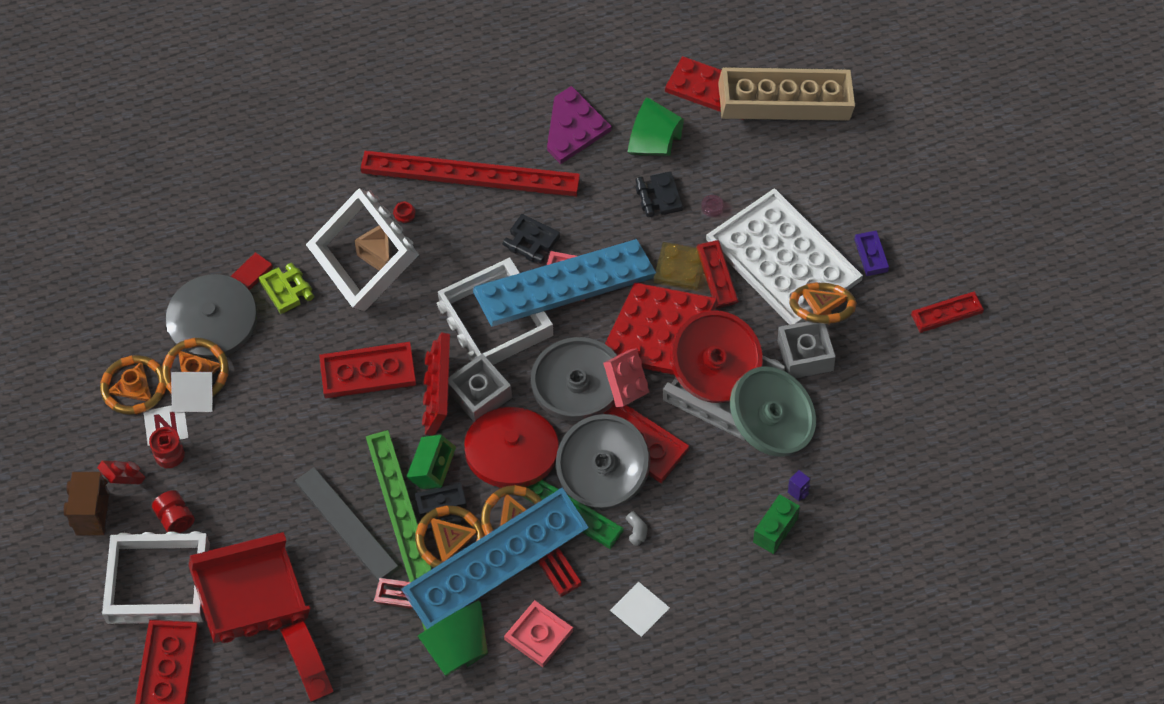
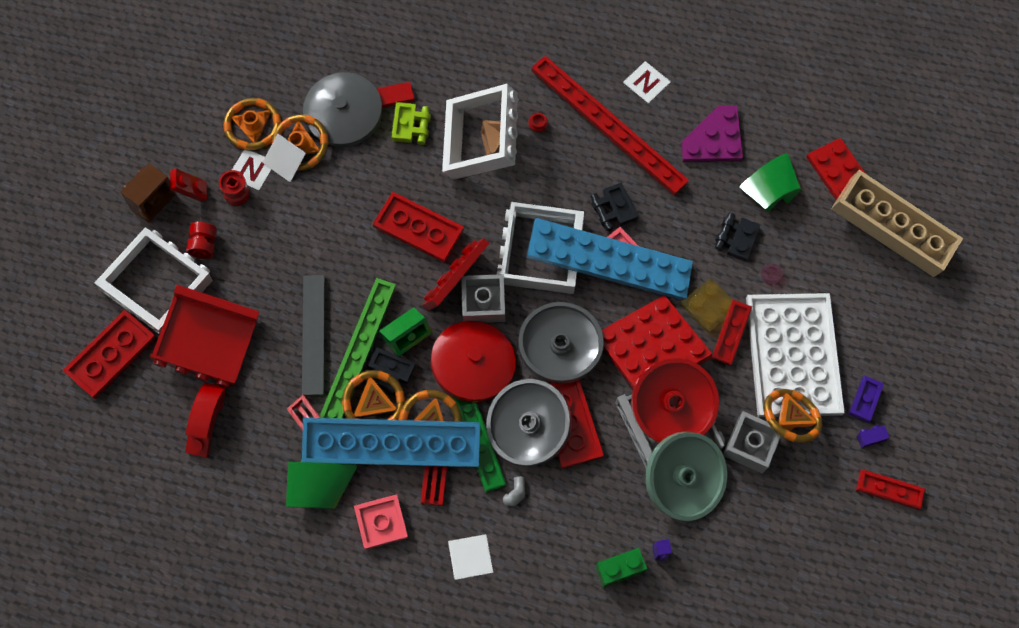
camera: 30 degrees right, 10 degrees up
(473, 117) = (646, 82): none -> white sticker
(626, 377) = (595, 369): coral plate -> none
(900, 279) = (872, 436): none -> dark purple piece

